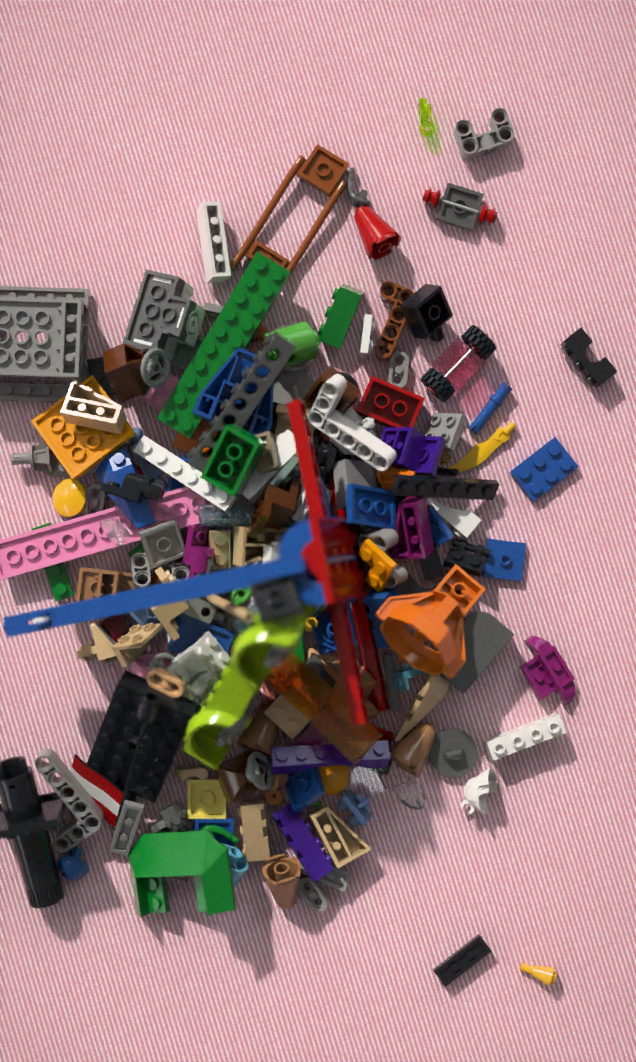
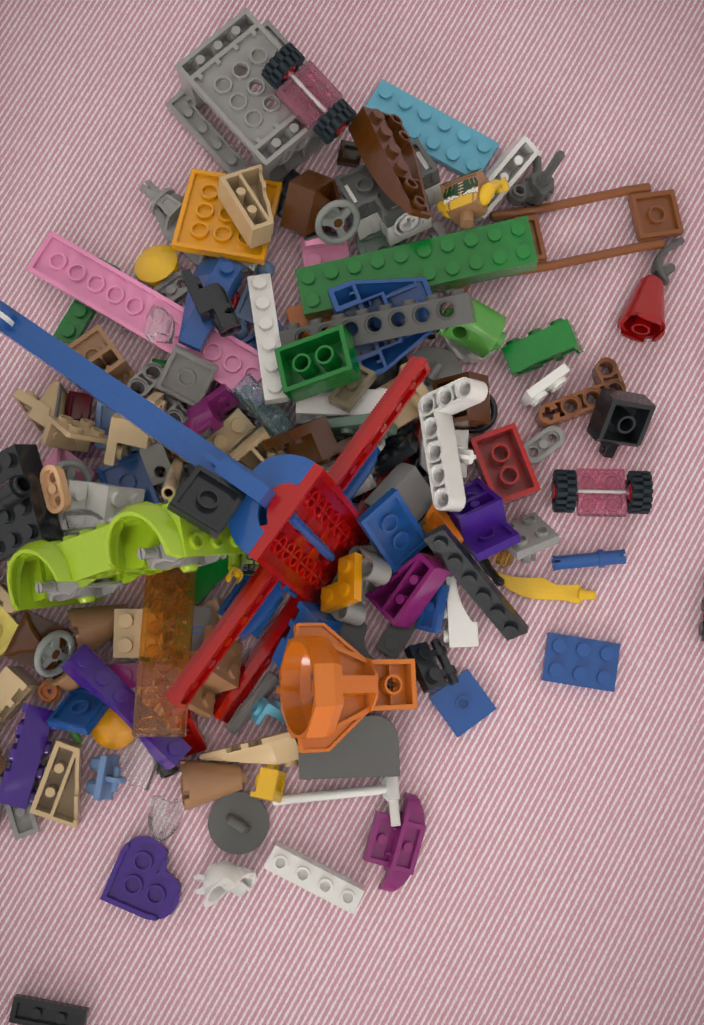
camera: 55 degrees right, 5 degrees down
(60, 311) = (308, 93): none -> plate
(110, 315) = (348, 154): none -> dark brown plate
(140, 252) = (442, 136): none -> medium azure plate
(147, 300) = (390, 159): none -> reddish brown wedge
(212, 274) = (469, 197): none -> torso
(240, 224) = (537, 186): none -> dark grey piece
(435, 838) = (142, 880): none -> dark purple plate
(448, 714) = (269, 783): none -> yellow brick
(513, 648) = (388, 789): none -> white bar

